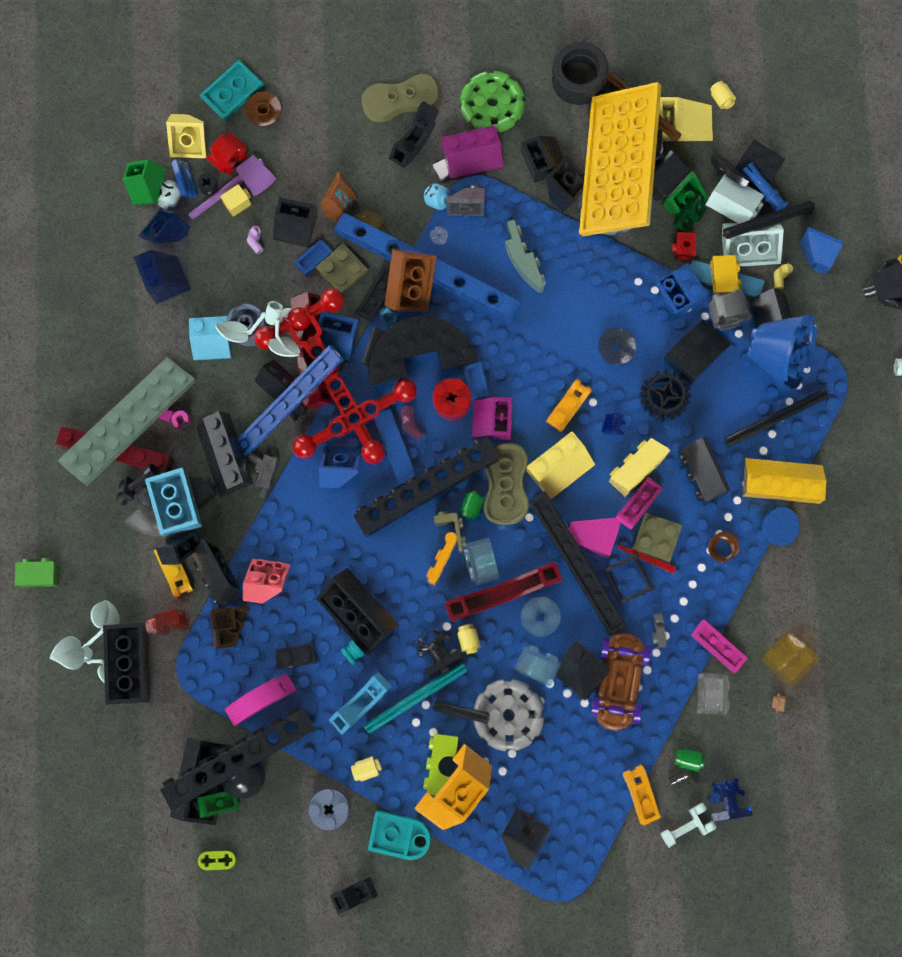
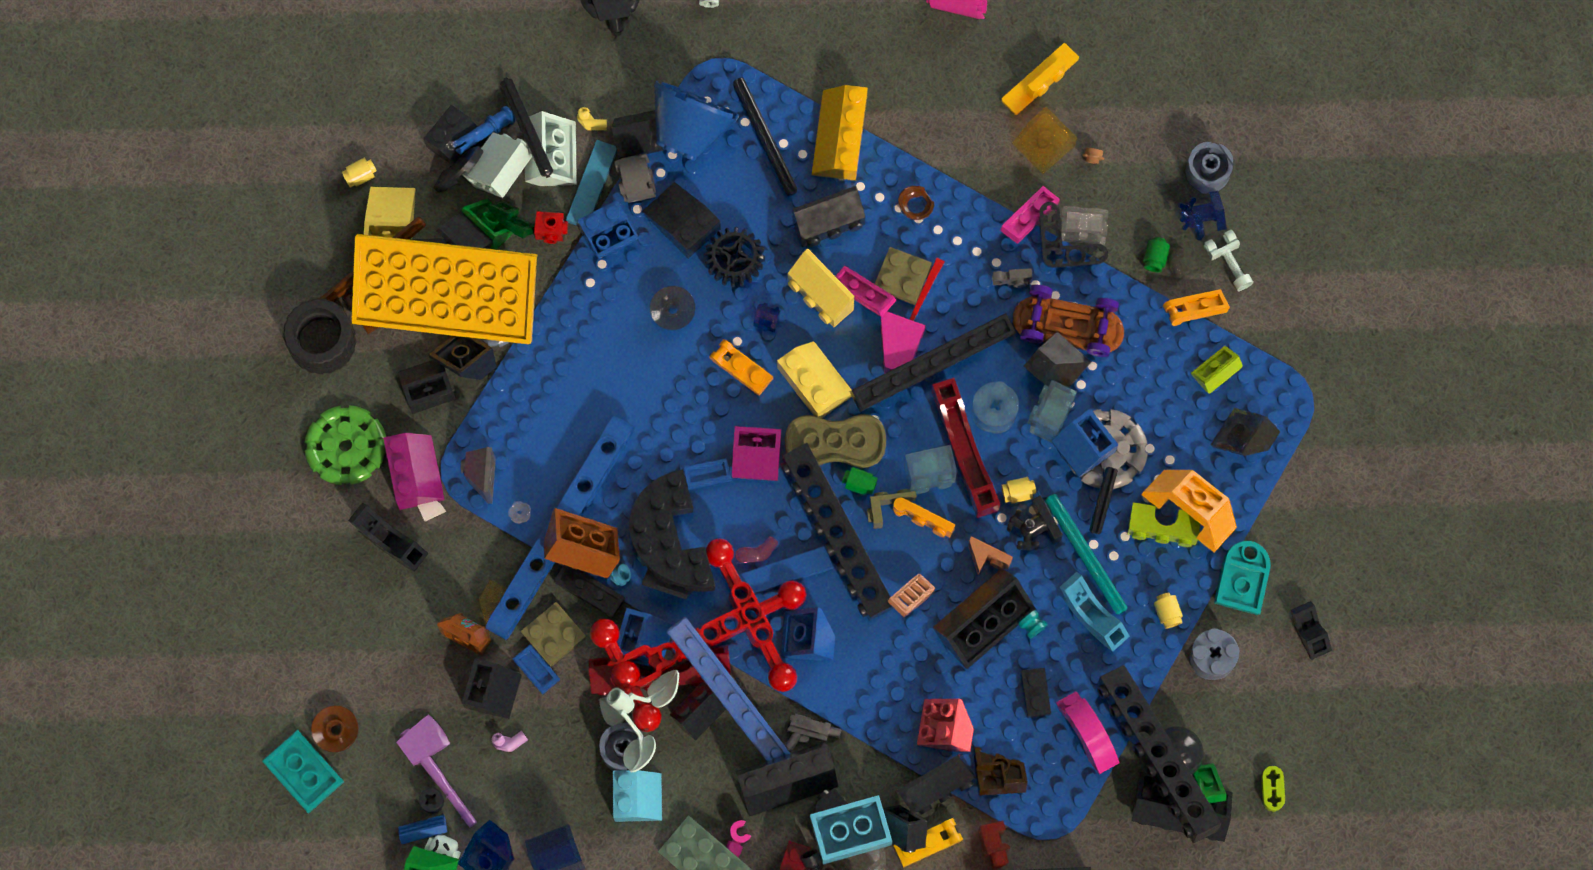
camera: 95 degrees left, 5 degrees down
(186, 136) = (364, 826): light yellow slope -> none
(227, 152) = (394, 771): red brick -> none
(236, 200) = (455, 763): light yellow brick -> none
(382, 556) = (913, 594): none -> nougat slope
(385, 101) = (332, 575): olive plate -> none
(413, 608) = (981, 552): none -> nougat slope
(436, 195) = (468, 513): medium azure head -> none
(444, 407) = (741, 493): red brick -> none
(507, 693) = (1085, 443): none -> blue slope
(525, 264) = (566, 409): sand green slope -> none
(585, 813) = (1217, 369): none -> lime slope
(635, 557) = (927, 299): black piece -> none
(690, 670) = (1057, 246): none -> black beam
(725, 274) = (592, 182): yellow brick -> none
(780, 526) = (892, 140): blue tile -> none
(785, 807) = (1213, 156): none -> sand blue brick
(820, 249) = (566, 74): blue slope -> none
(845, 652) = (1040, 79): none -> yellow bracket

